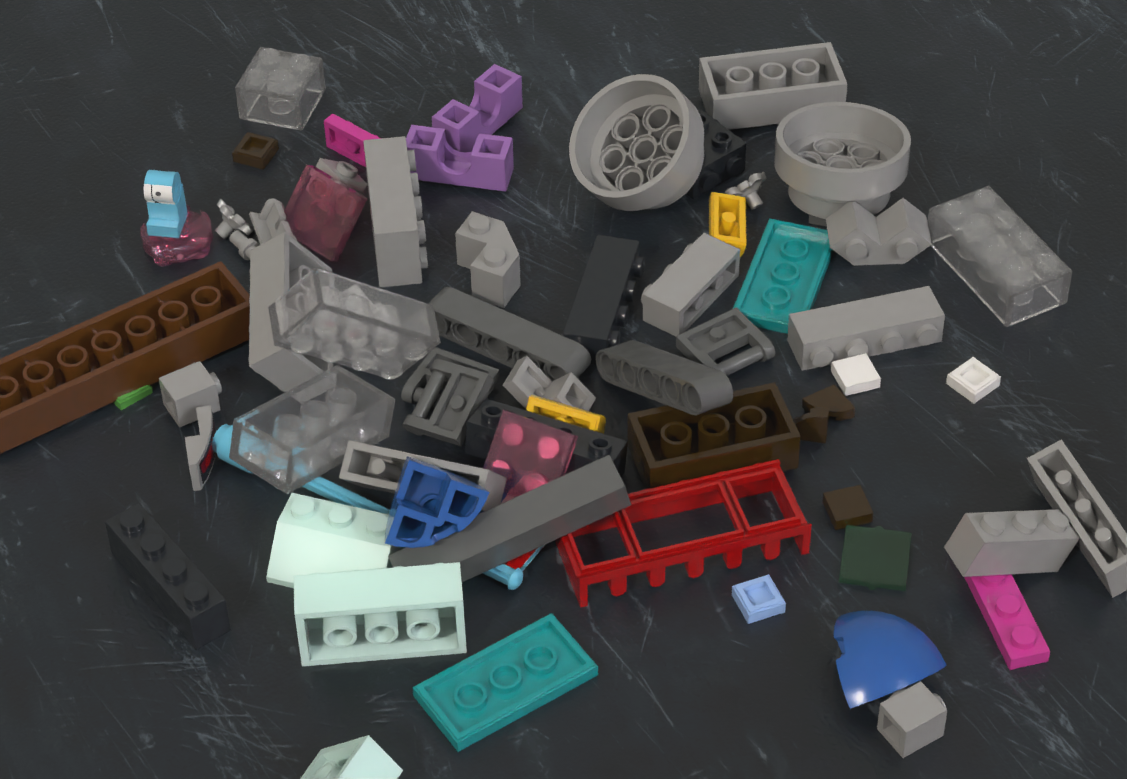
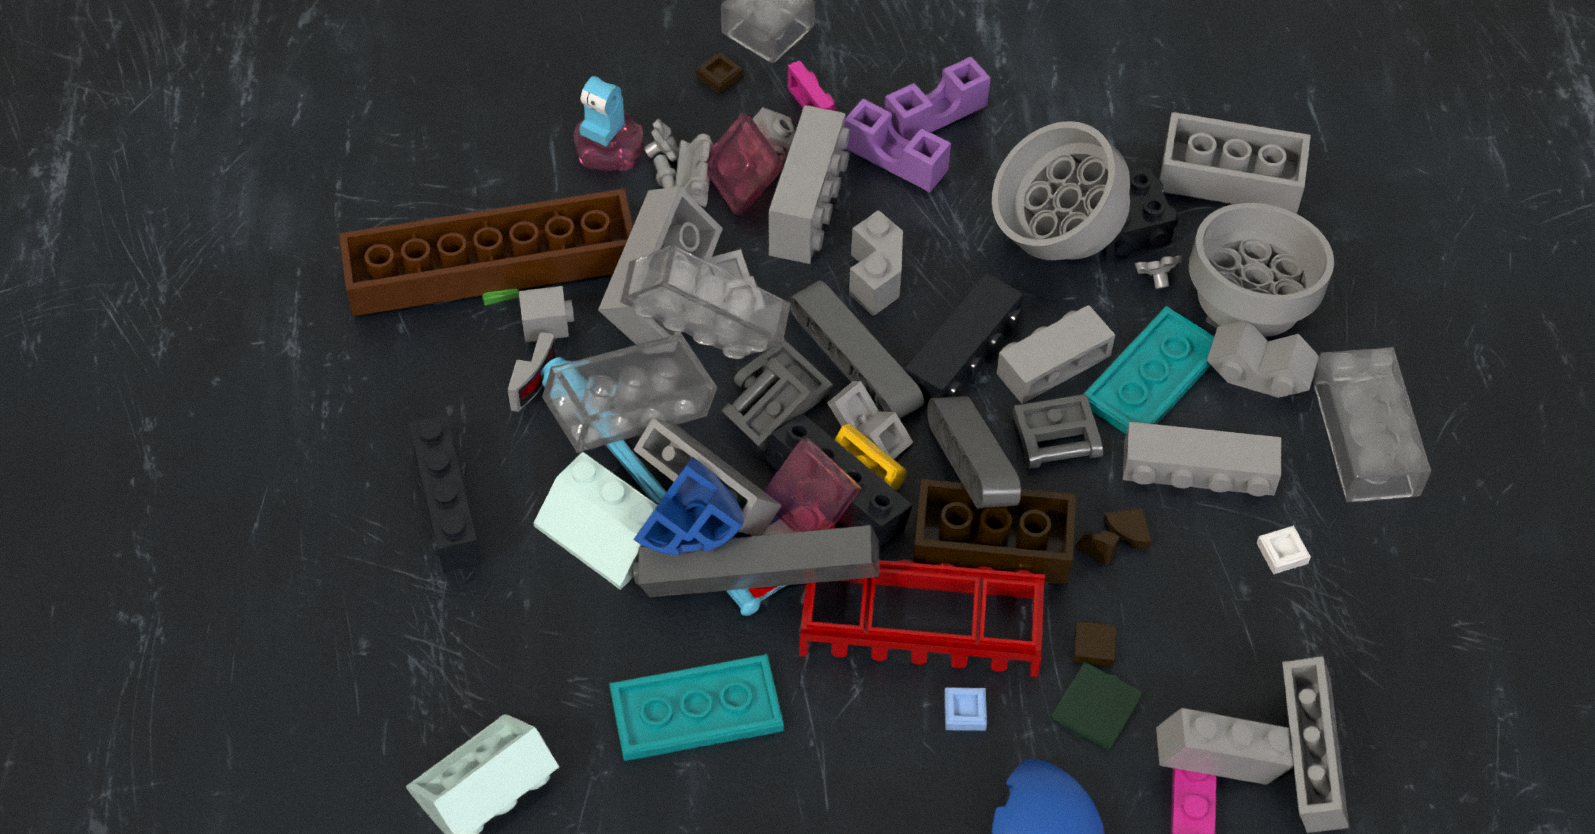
camera: 20 degrees right, 10 degrees up
(379, 614) = (606, 603): light aqua brick -> none
(728, 219) = (1122, 298): yellow brick -> none
(855, 374) = (1170, 504): white tile -> none

